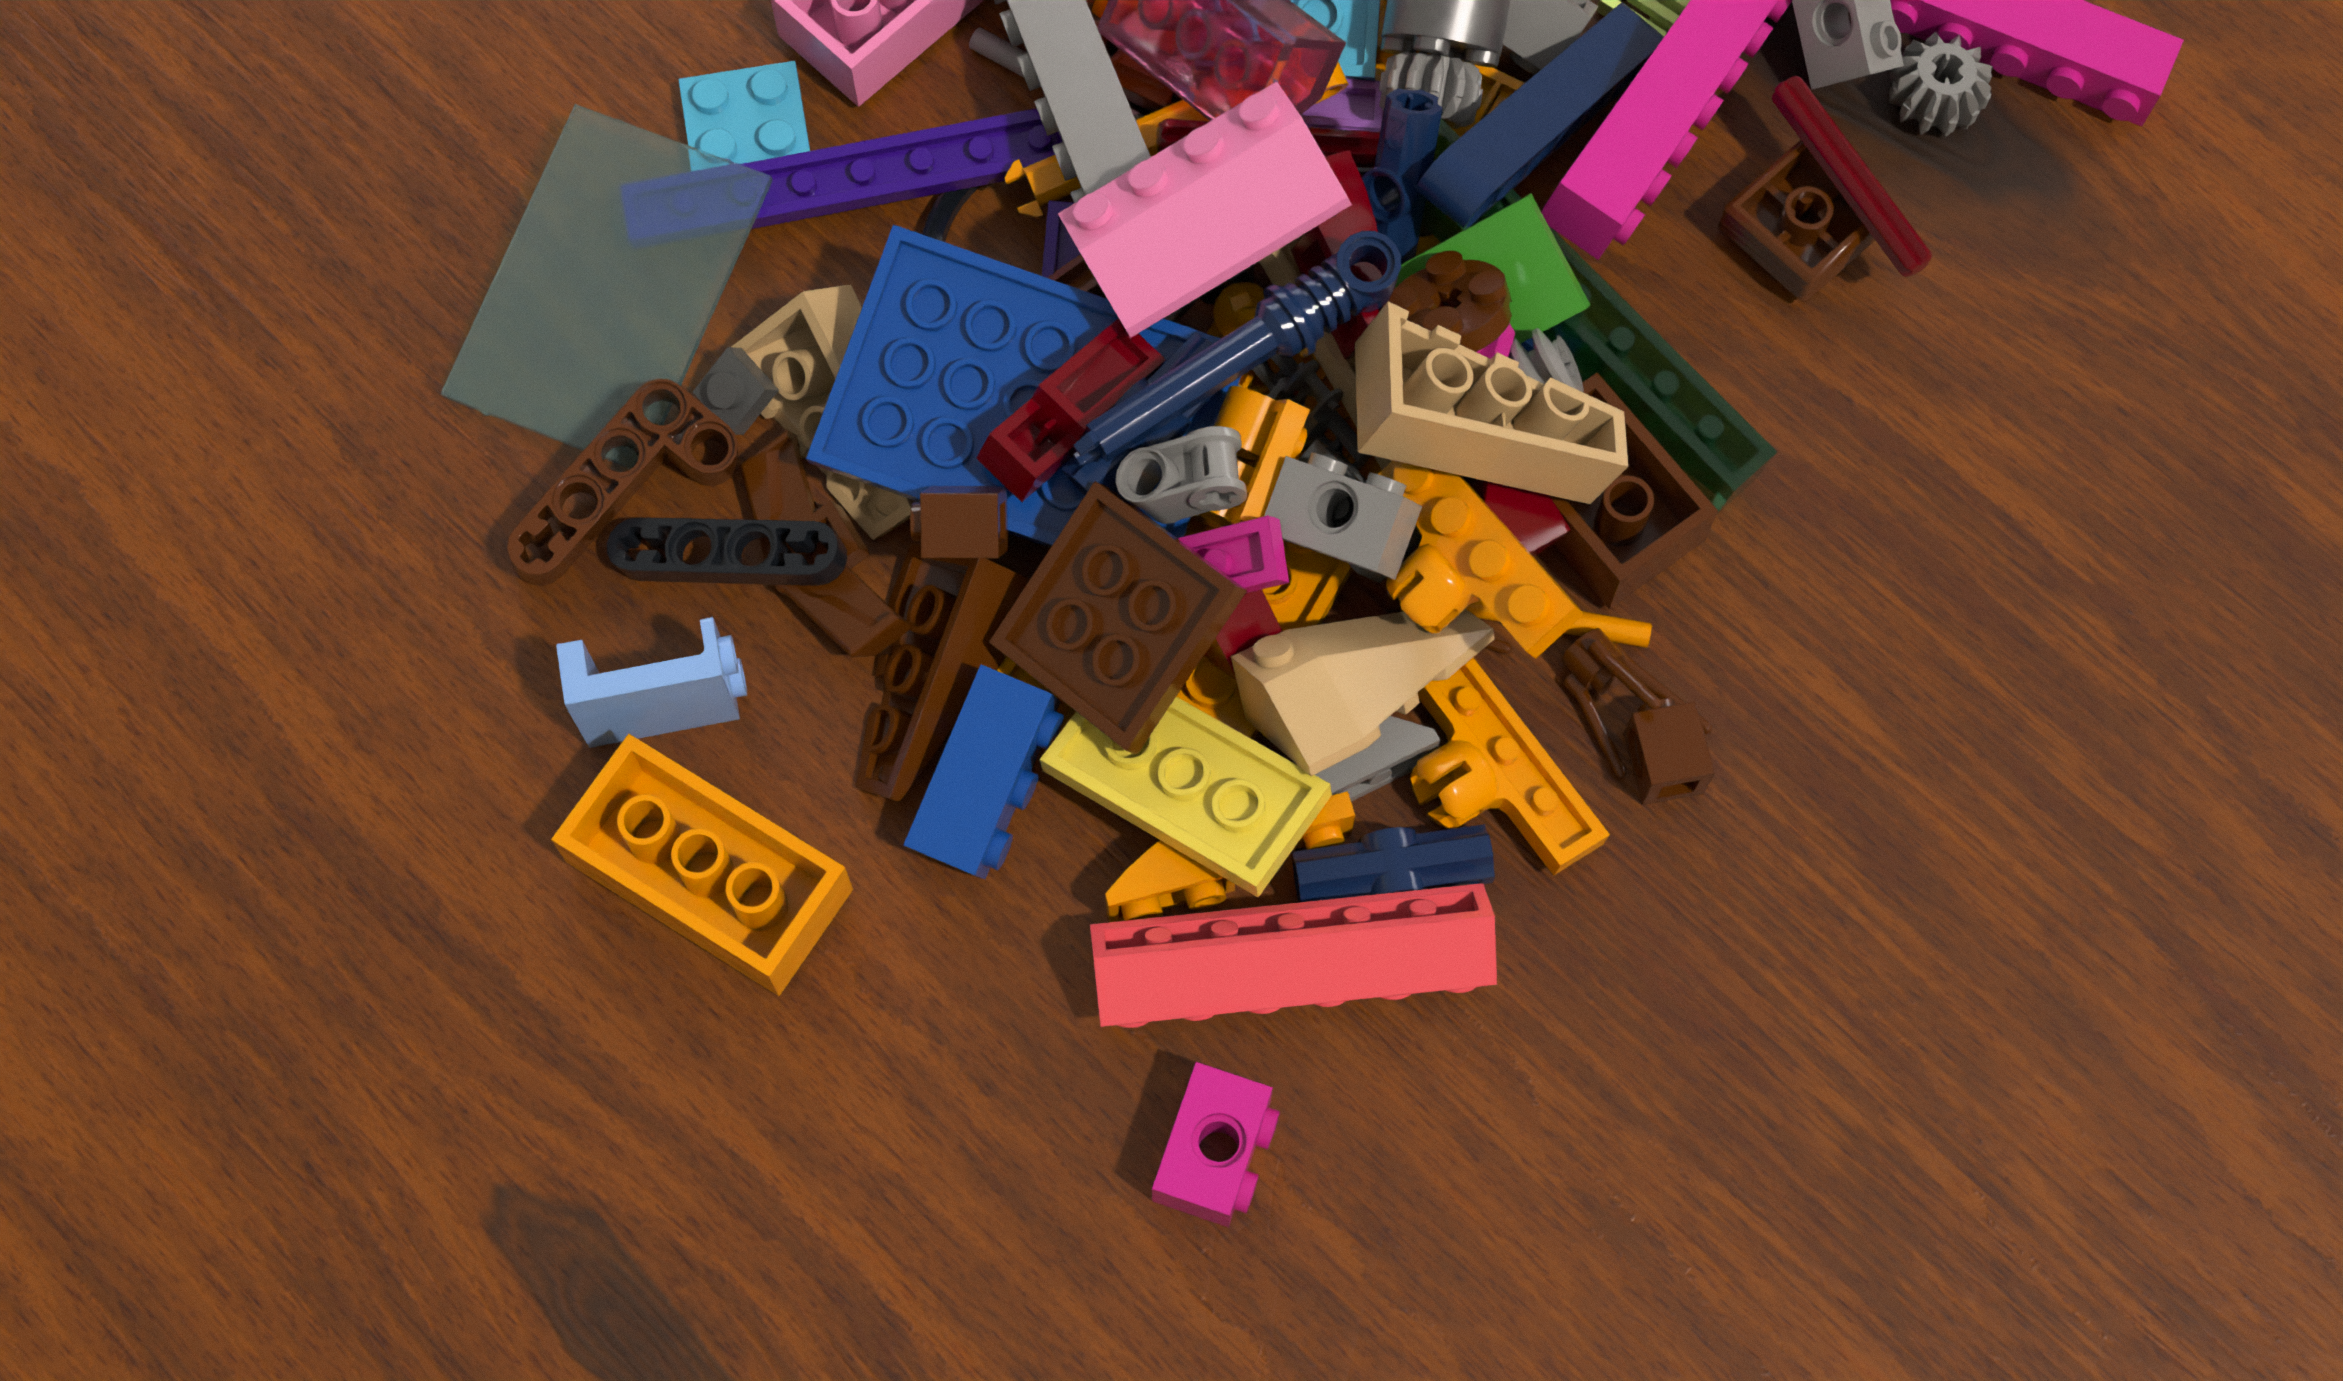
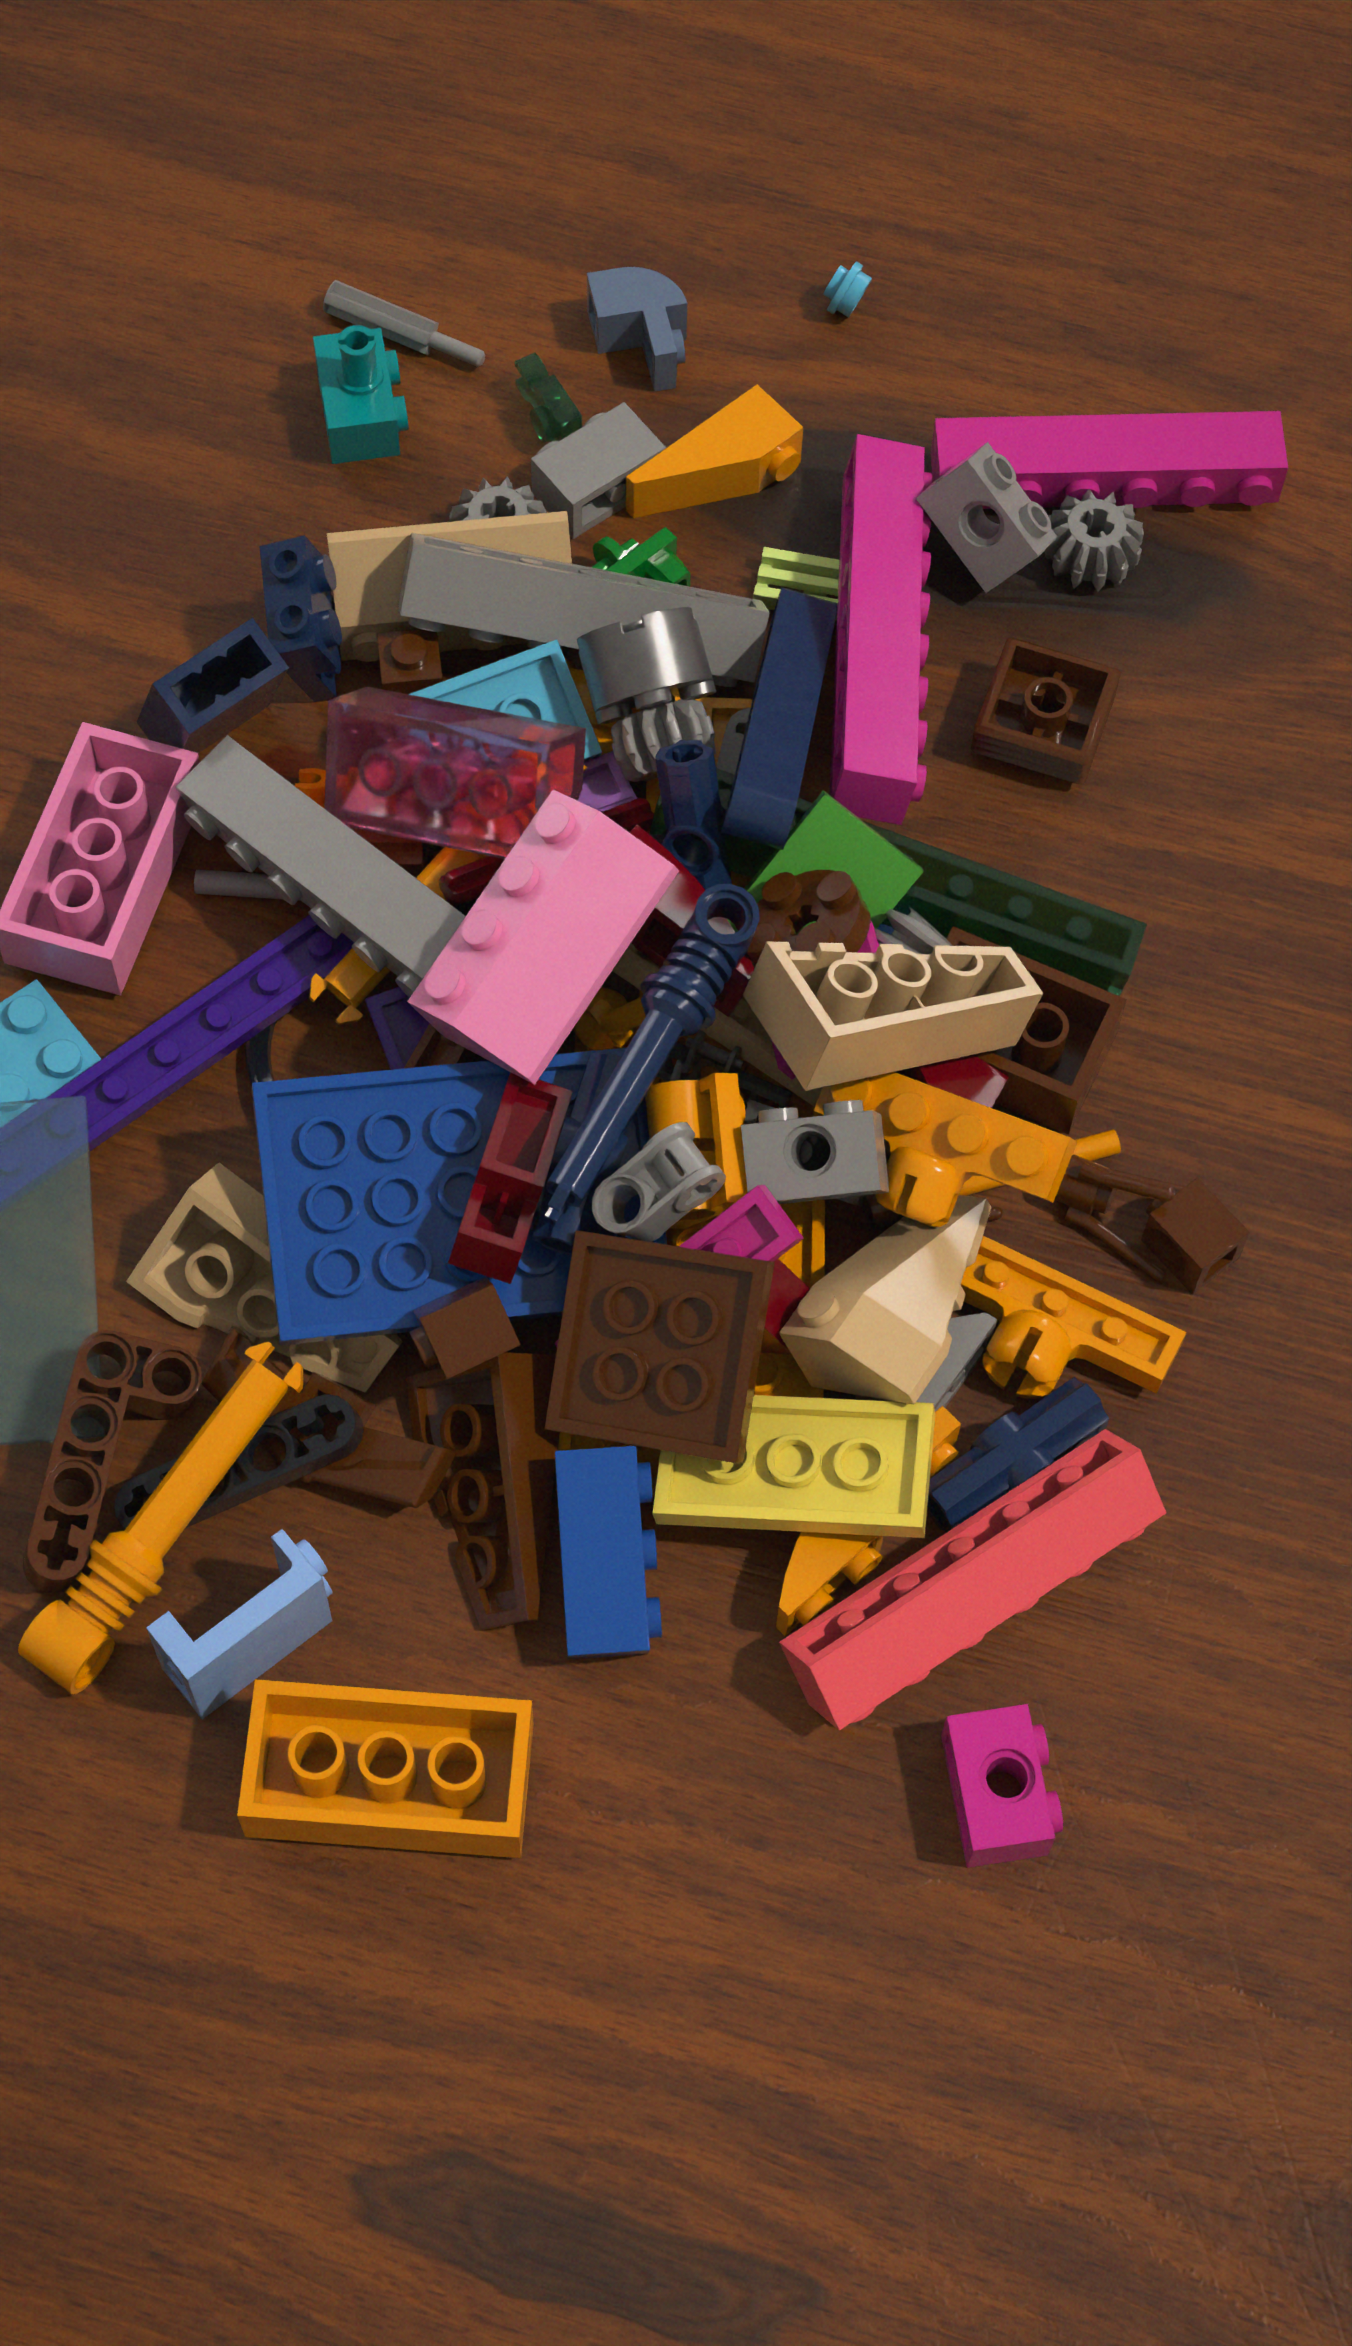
camera: 30 degrees left, 5 degrees down
(518, 625) = (72, 1638): none -> light orange piece
(736, 390) = (159, 1310): dark grey plate -> none
(1851, 177) = (1071, 653): dark red axle -> none

